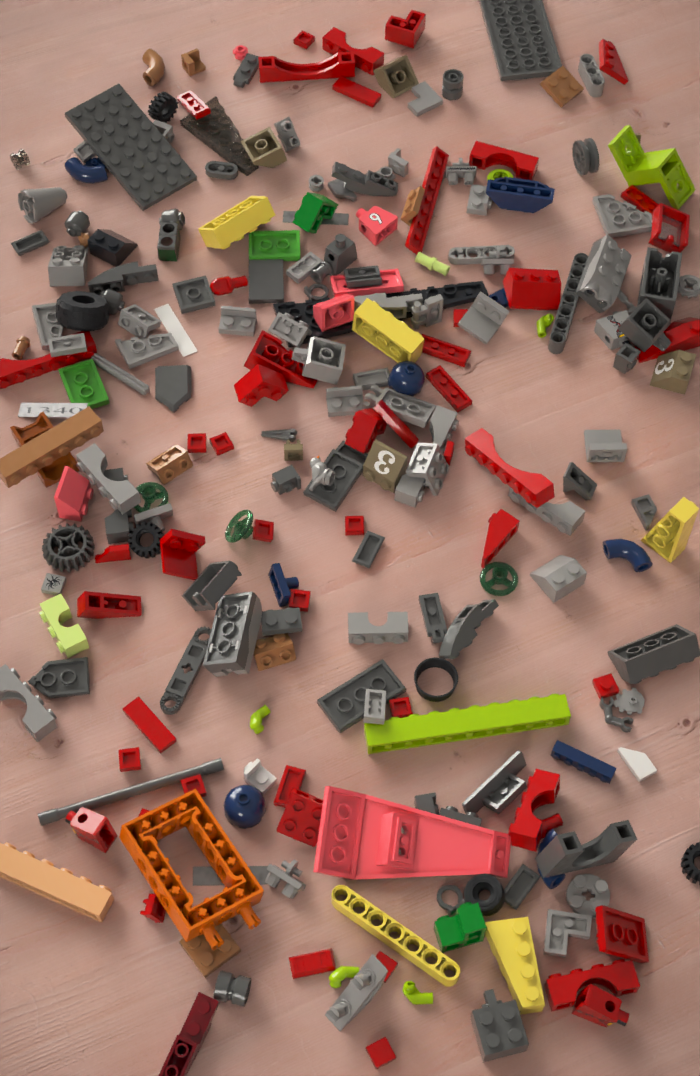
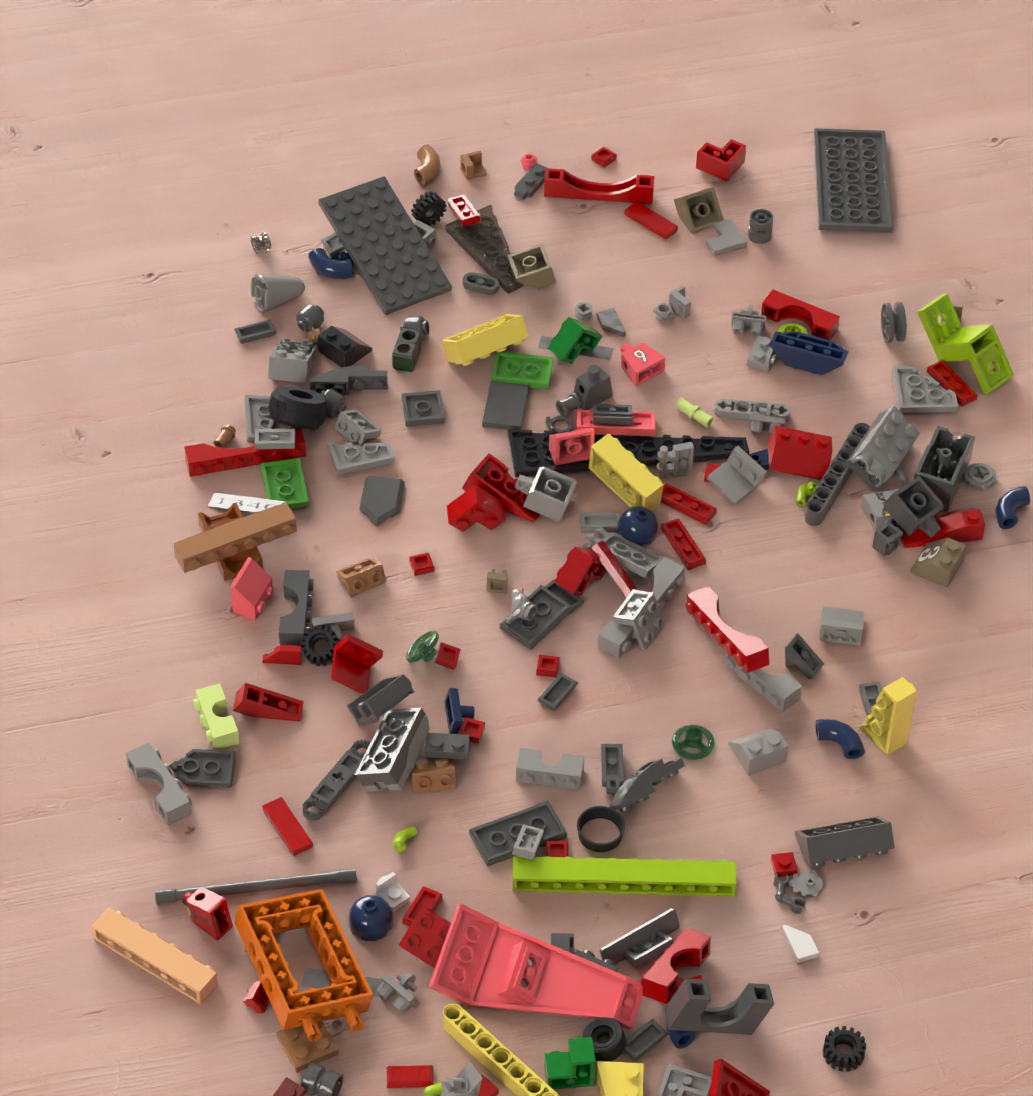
camera: 10 degrees right, 10 degrees down
(53, 584) = (213, 675): light grey tile -> none
(67, 541) = (236, 636): dark grey gear -> none
(120, 374) = (326, 478): light grey axle -> none
(120, 493) = (301, 594): light grey arch -> none
(129, 759) = (260, 855): red plate -> none
(149, 494) = (333, 603): clear green piece -> none
(174, 327) = (394, 437): white sticker -> none
(192, 783) = (326, 885): red plate -> none
(197, 443) = (394, 559): red plate -> none
(226, 285) = (461, 403): red arm -> none
(237, 321) = (465, 442): light grey bracket -> none
(284, 435) = (488, 564): dark grey piece -> none
(285, 480) = (482, 609): dark grey brick -> none
(287, 134) = (561, 254): light grey hips -> none
(289, 329) = (519, 457): light grey bracket -> none
(303, 267) = (548, 397): light grey piece -> none
(344, 400) = (563, 538): light grey bracket -> none
(365, 59) = (667, 186): red arch -> none
(368, 184) = (641, 320): dark grey slope -> none
(384, 466) = (592, 608): dark tan slope -> none
(396, 305) = (641, 448): light grey slope -> none
(412, 205) = (685, 350): medium nougat bracket -> none
(431, 184) = (703, 345): red plate -> none
(449, 452) = (667, 607): red tile -> none
(450, 909) = (558, 1044): dark grey piece -> none
(500, 530) = (704, 694): red slope -> none
(562, 86) = (886, 244): medium nougat plate -> none
(582, 884) = (713, 1048): light grey plate -> none
(583, 762) = (741, 932): dark blue piece -> none
(591, 75) = (923, 236): light grey beam -> none
(610, 61) = (949, 225): red wing -> none
(669, 229) = (971, 411): red window -> none

